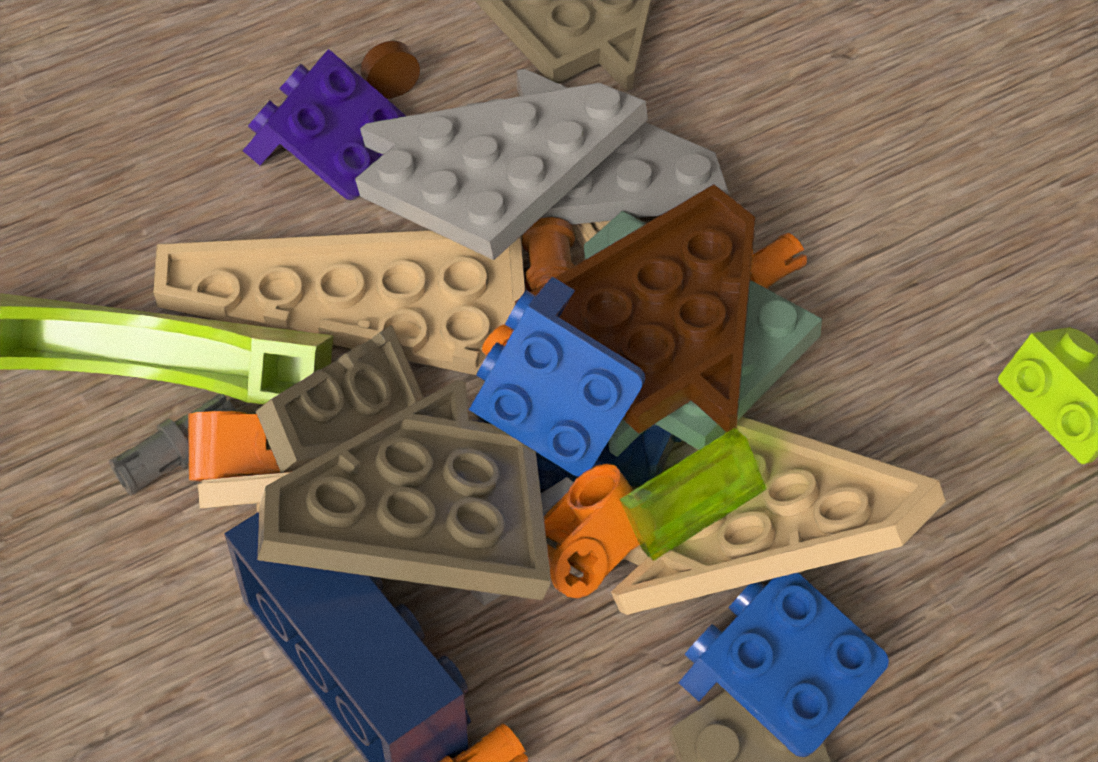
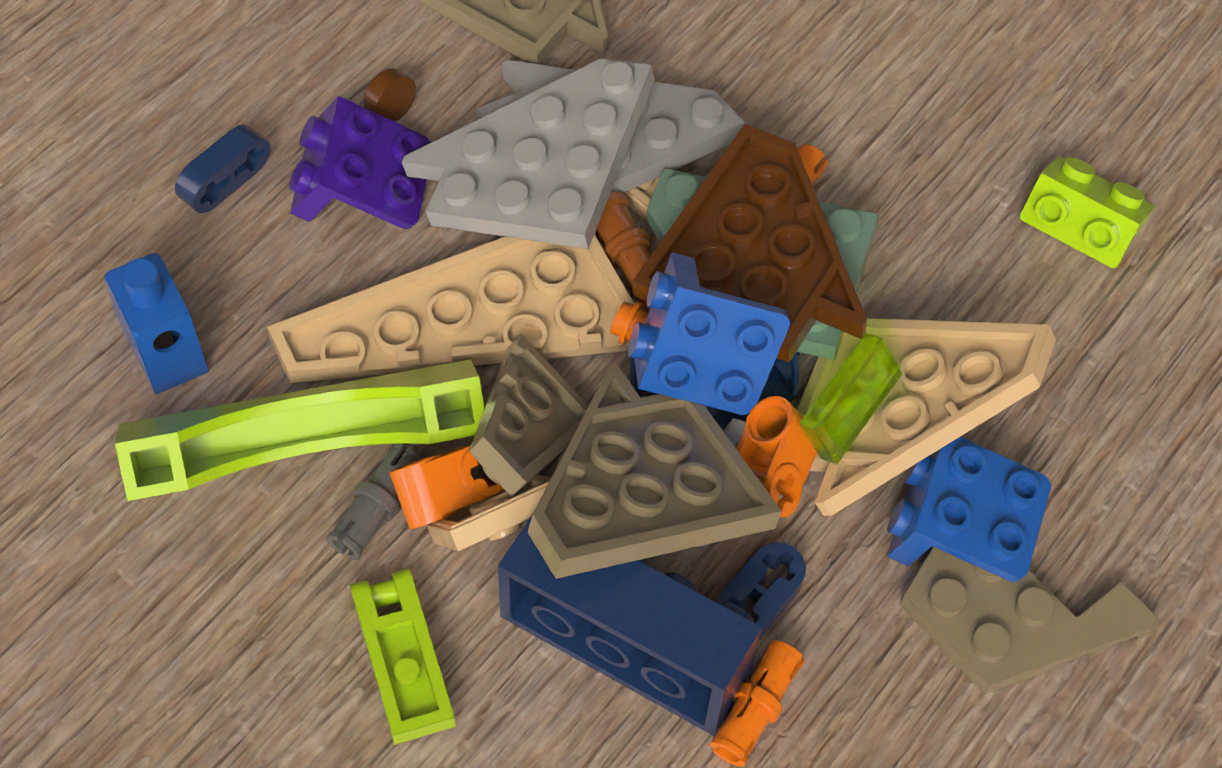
camera: 25 degrees left, 5 degrees up
(53, 179) = (146, 307): none -> blue torso
(118, 605) = (403, 658): none -> lime plate
(197, 90) = (222, 168): none -> dark blue beam
(517, 676) = (750, 579): none -> dark blue beam

